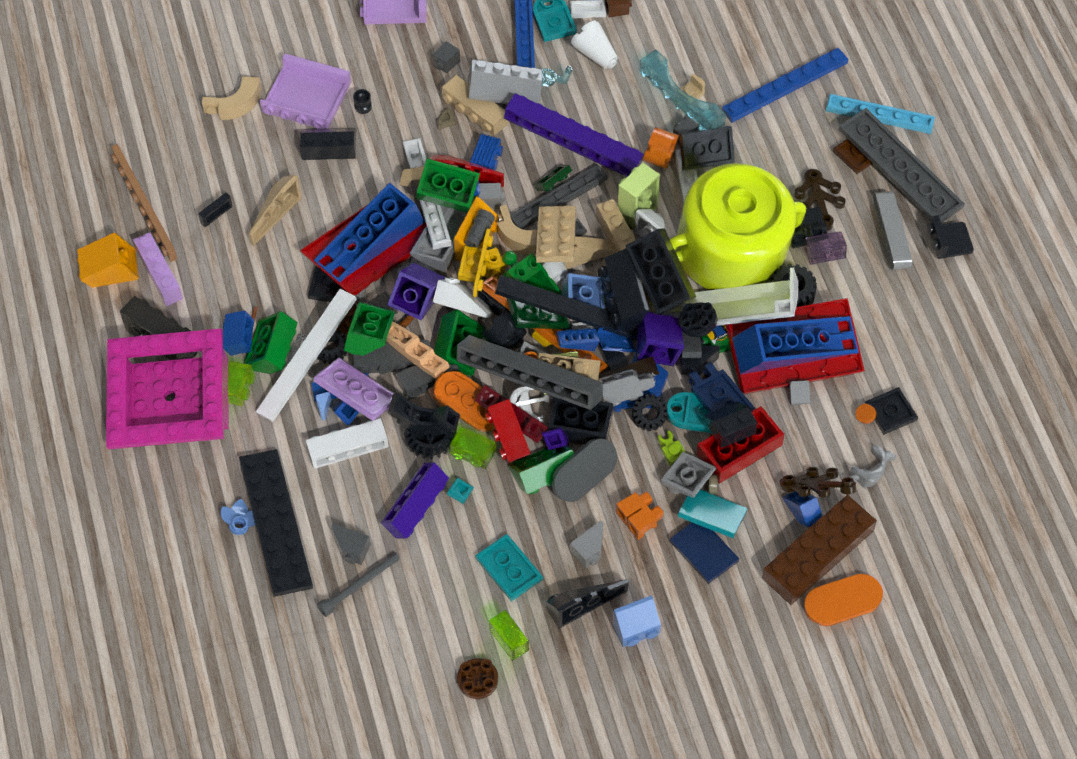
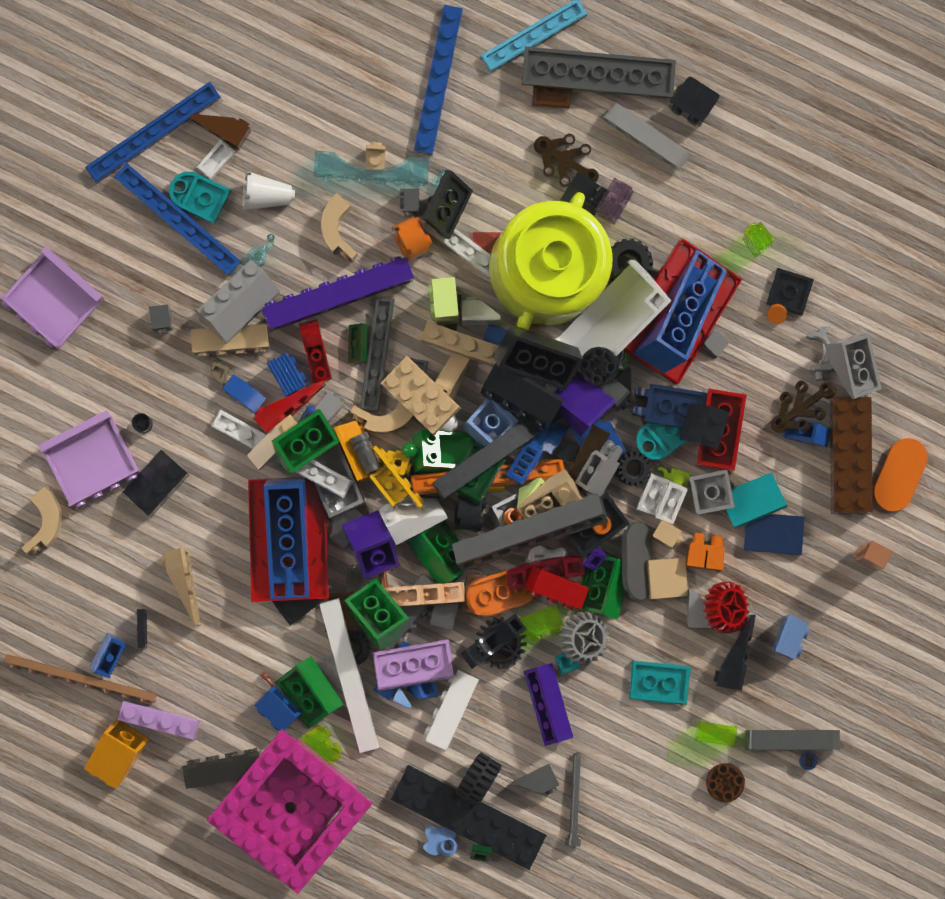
camera: 45 degrees left, 25 degrees up
(175, 202) = (107, 655): none -> blue brick
(255, 550) = (481, 853): none -> dark green tile
(310, 496) = (478, 779): none -> black tyre
(445, 140) = (243, 393): none -> blue slope
(506, 477) = (576, 645): none -> light grey gear
(521, 157) = (315, 351): none -> red slope
(557, 729) = (813, 763): none -> dark blue bush
(560, 696) = (792, 739): none -> dark grey beam
(585, 417) = (602, 528): none -> orange tile
(592, 502) = (667, 578): none -> tan tile
(617, 99) = (330, 221): none -> tan arch
(621, 567) = (726, 607): none -> red gear
(625, 476) = (667, 534): none -> tan brick
(648, 450) = (661, 498): none -> white slope
(760, 621) = (873, 555): none -> nougat brick
(888, 489) = (855, 364): none -> light grey slope
(903, 351) = (757, 238): none -> clear neon green brick

